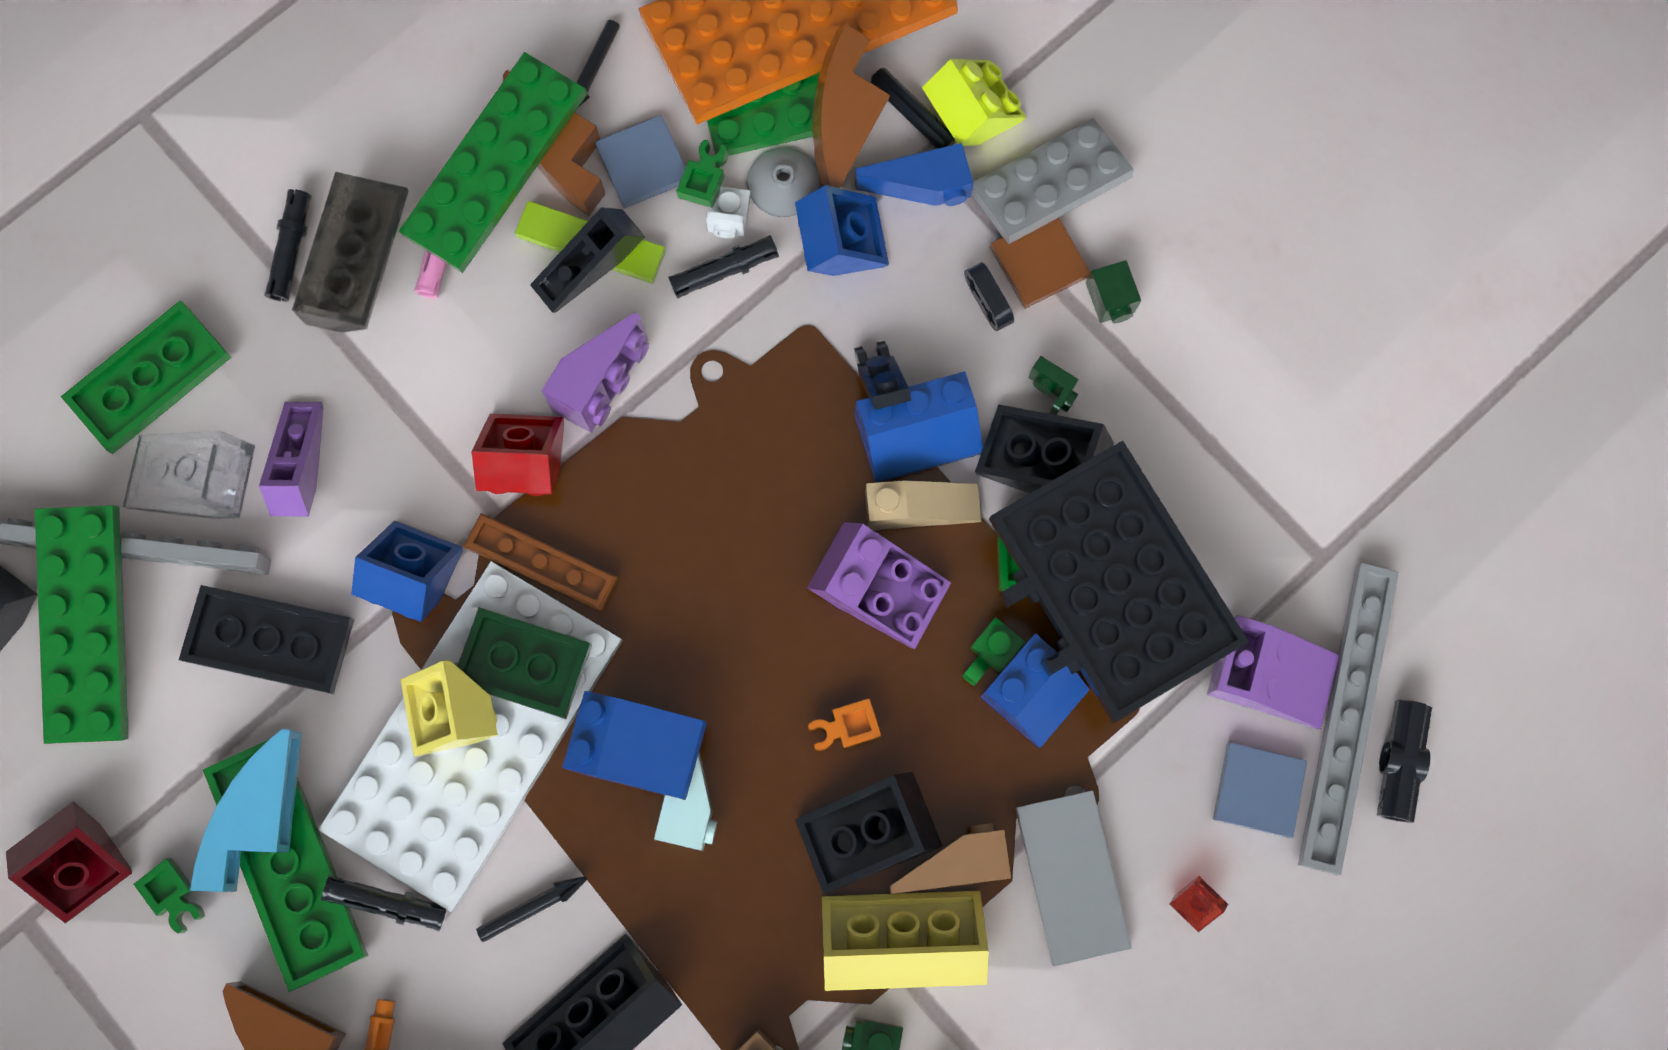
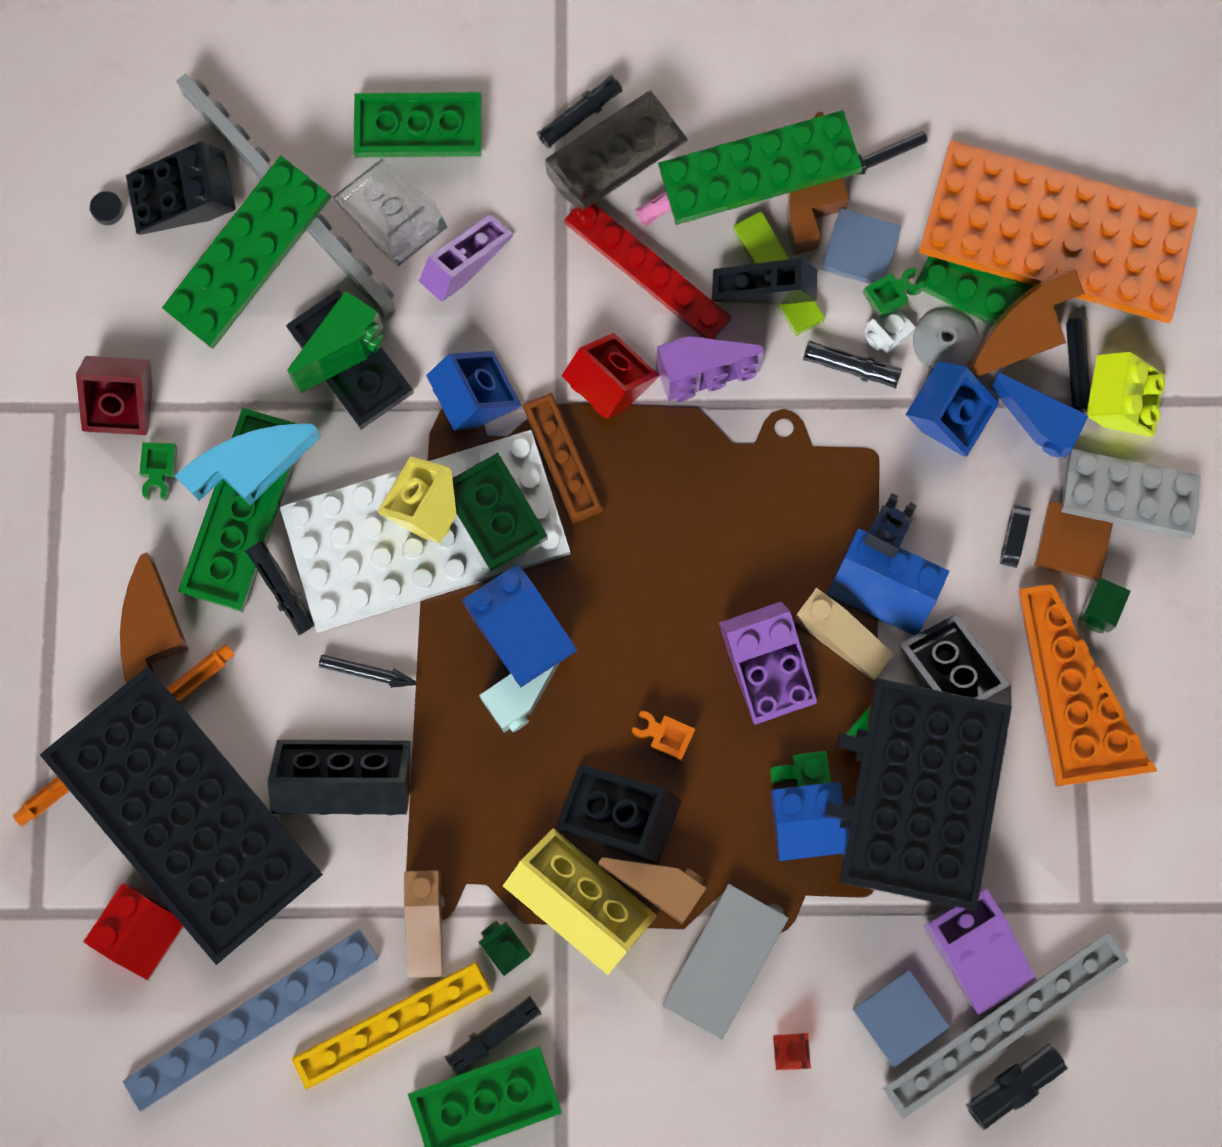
camera: 45 degrees right, 0 degrees up
(242, 632) = (339, 343): none -> green slope
(472, 334) = (648, 270): none -> red plate
(1054, 380) = (1006, 627): dark green bracket -> none
(1167, 395) = (1078, 709): none -> orange wing

